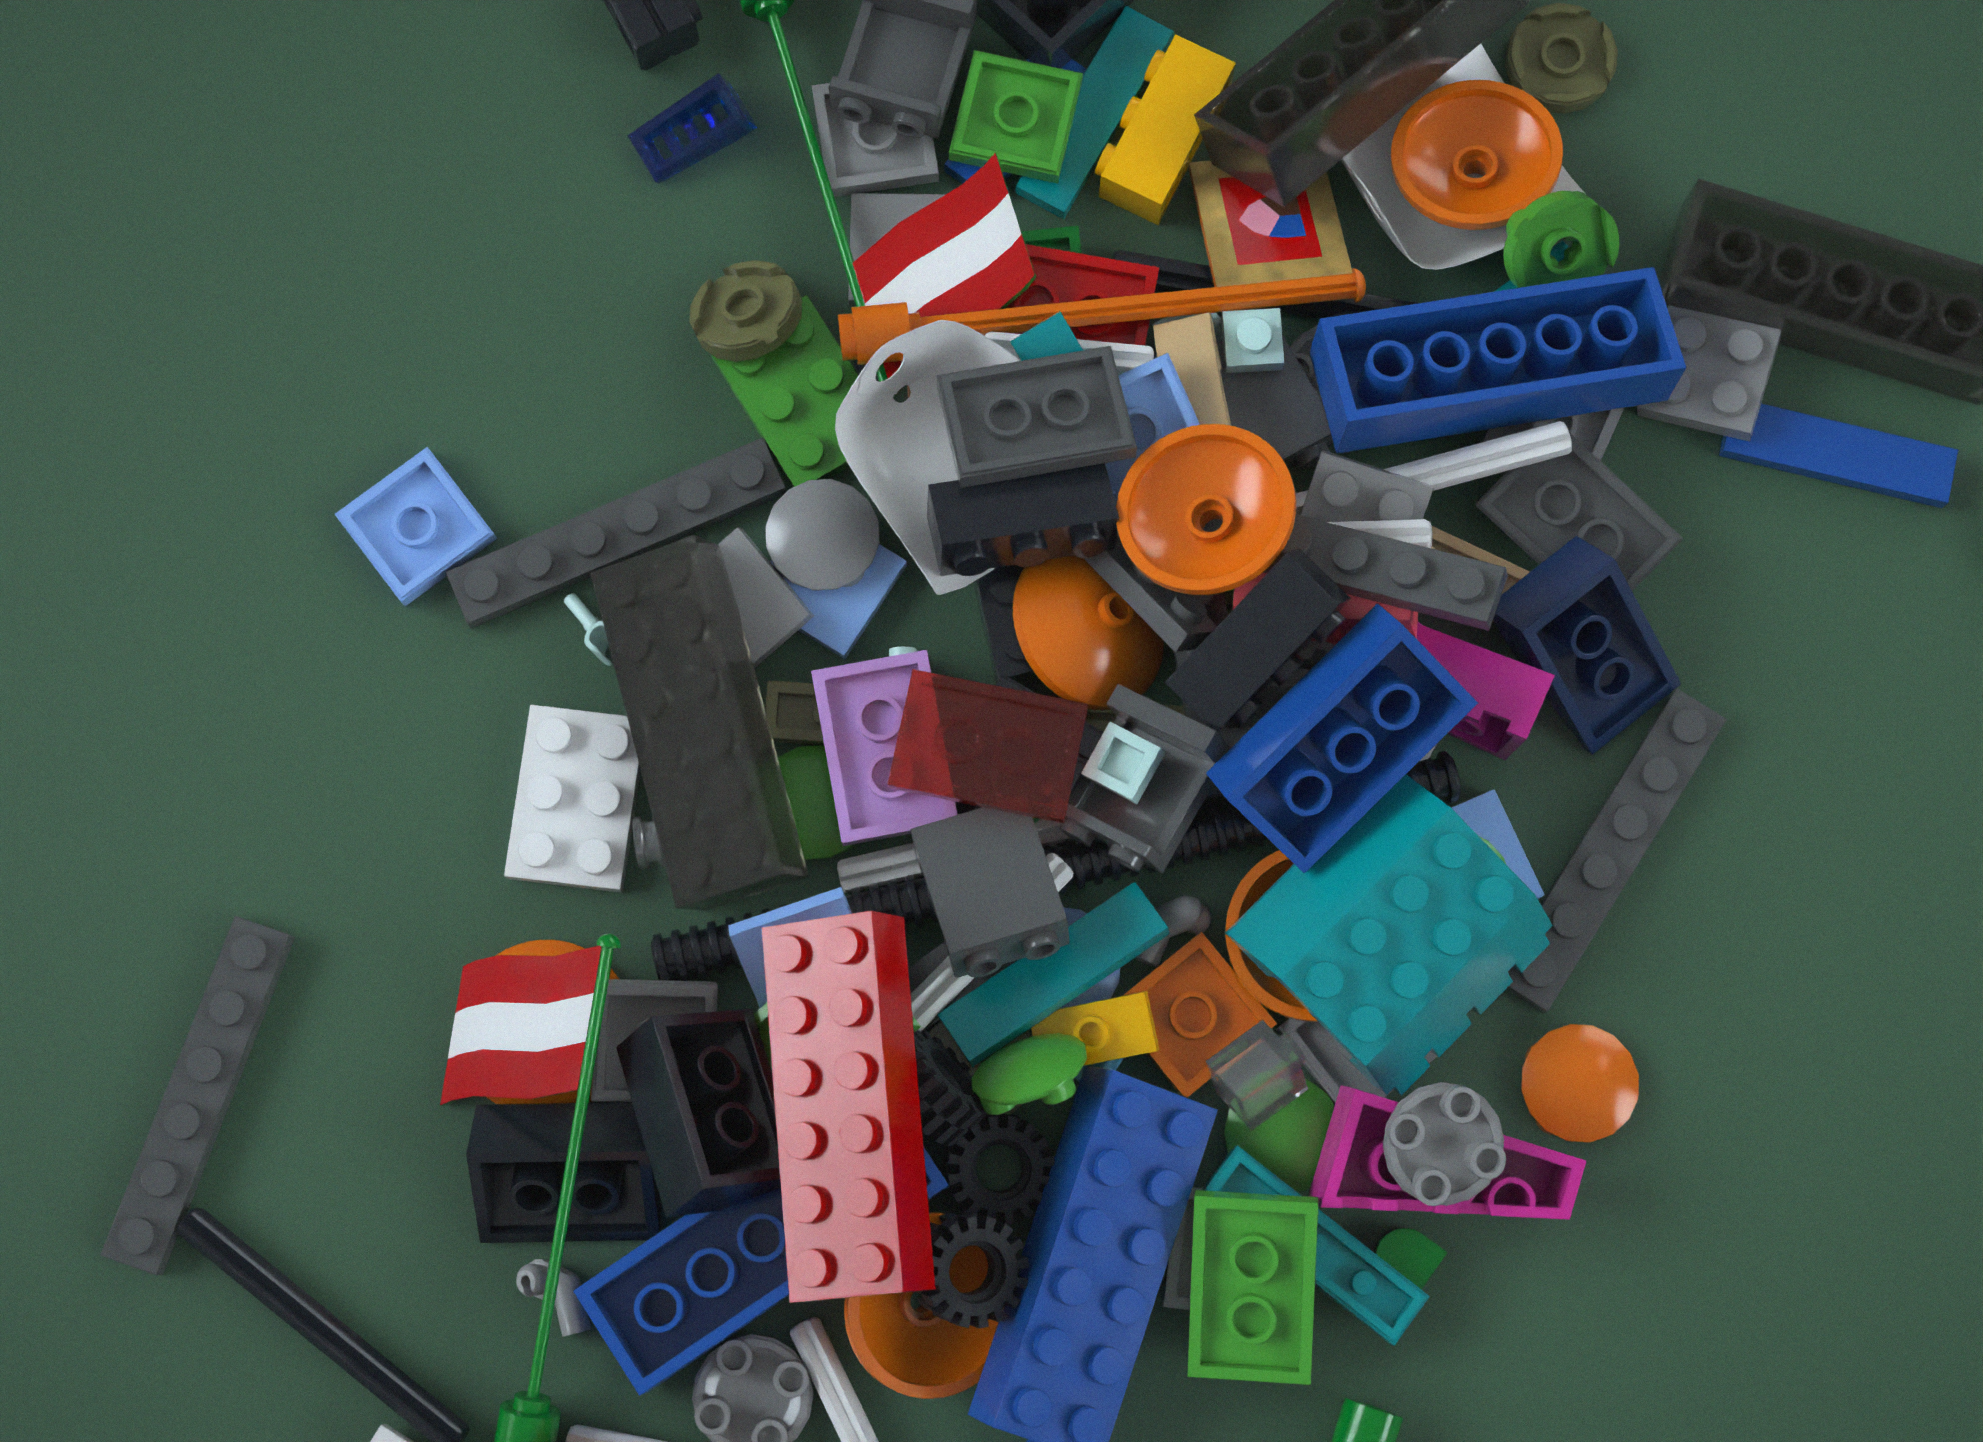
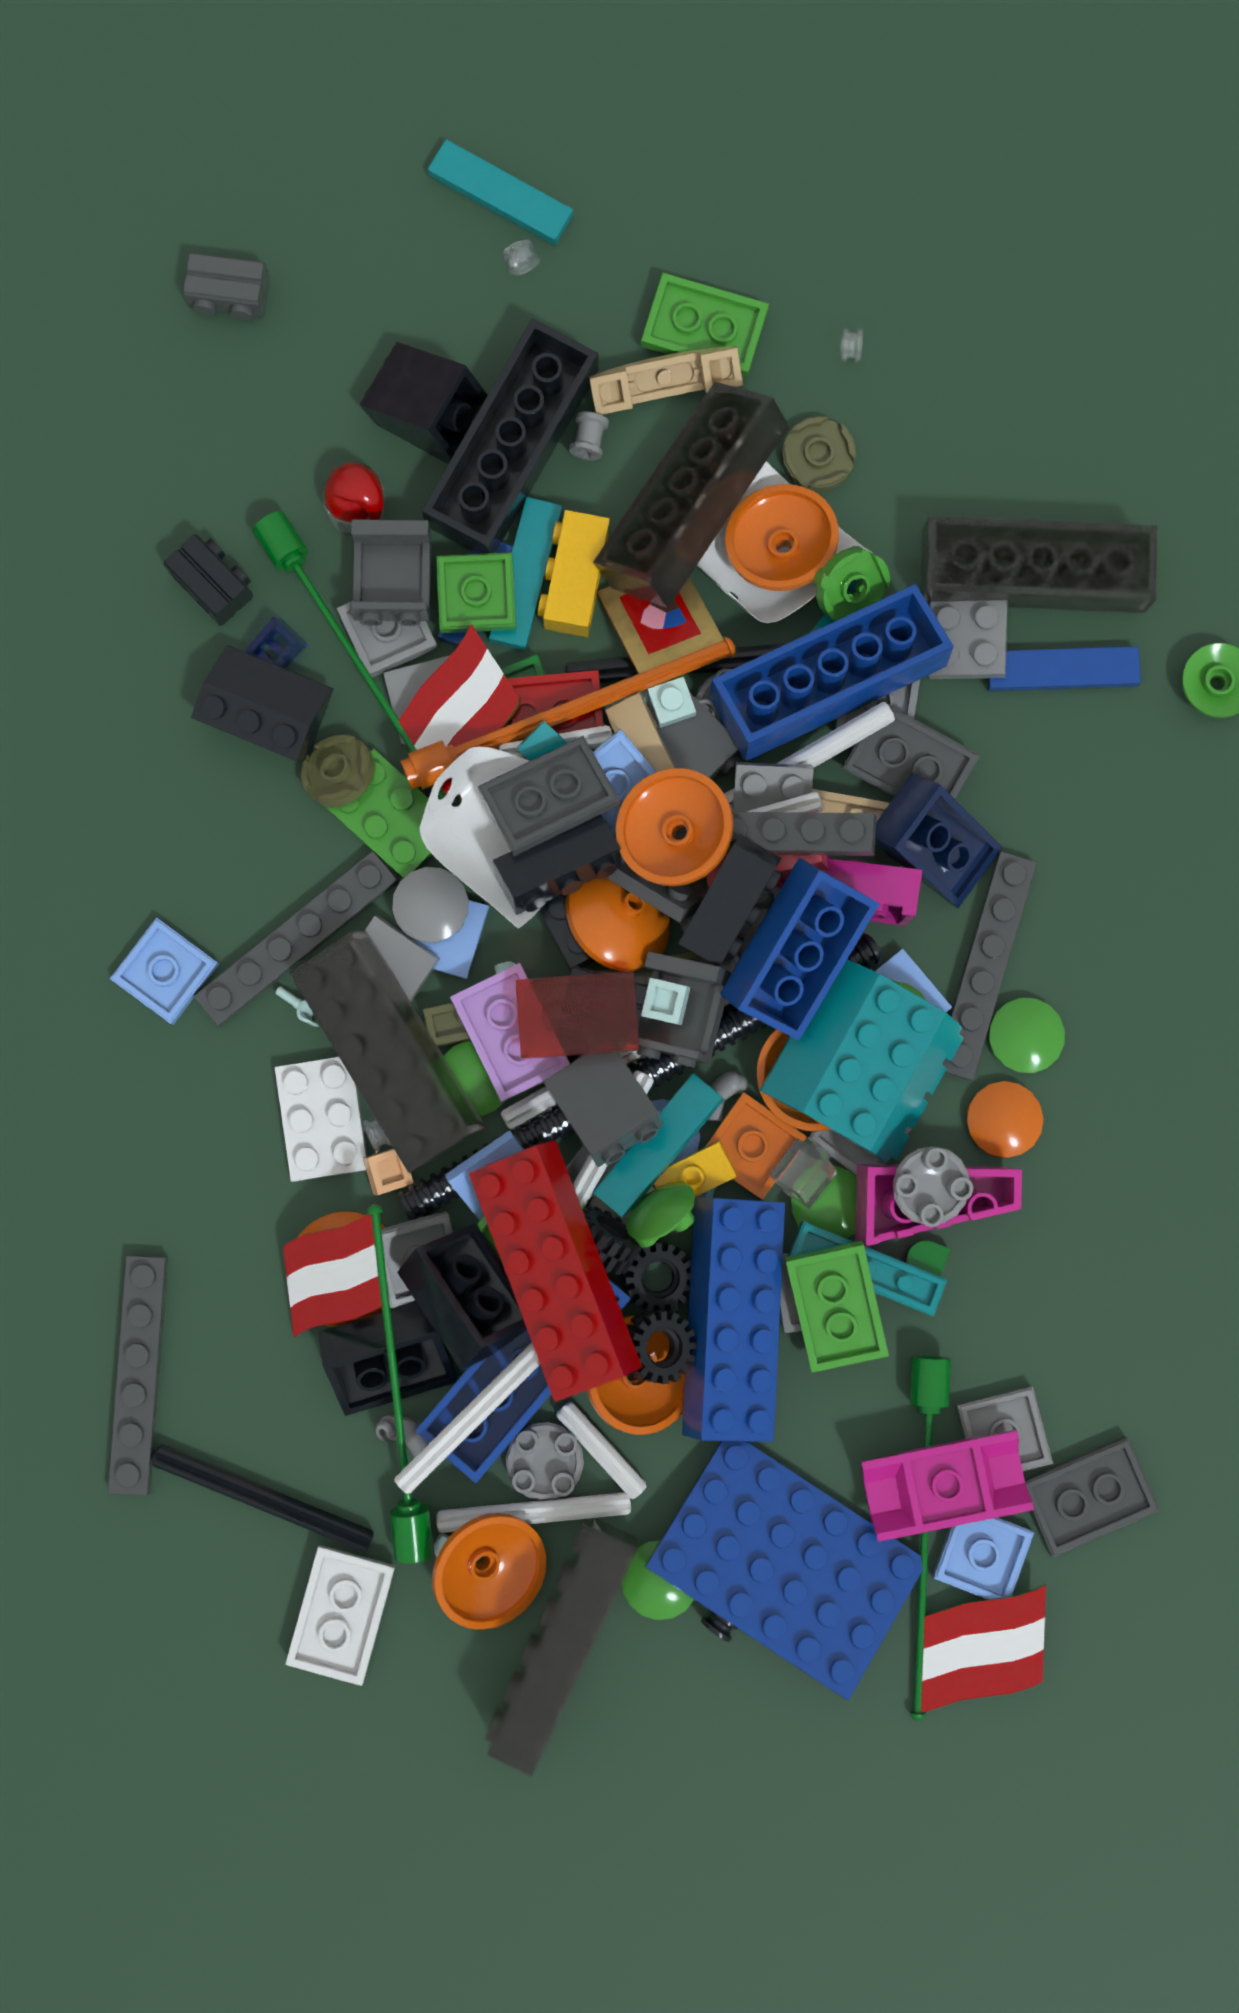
camera: 20 degrees left, 5 degrees up
(646, 901) = (386, 1172): none -> light nougat plate
(654, 1296) = (468, 1420): none -> white axle
(668, 188) = (263, 703): none -> black slope
(1645, 968) = (1026, 1035): none -> bright green dish

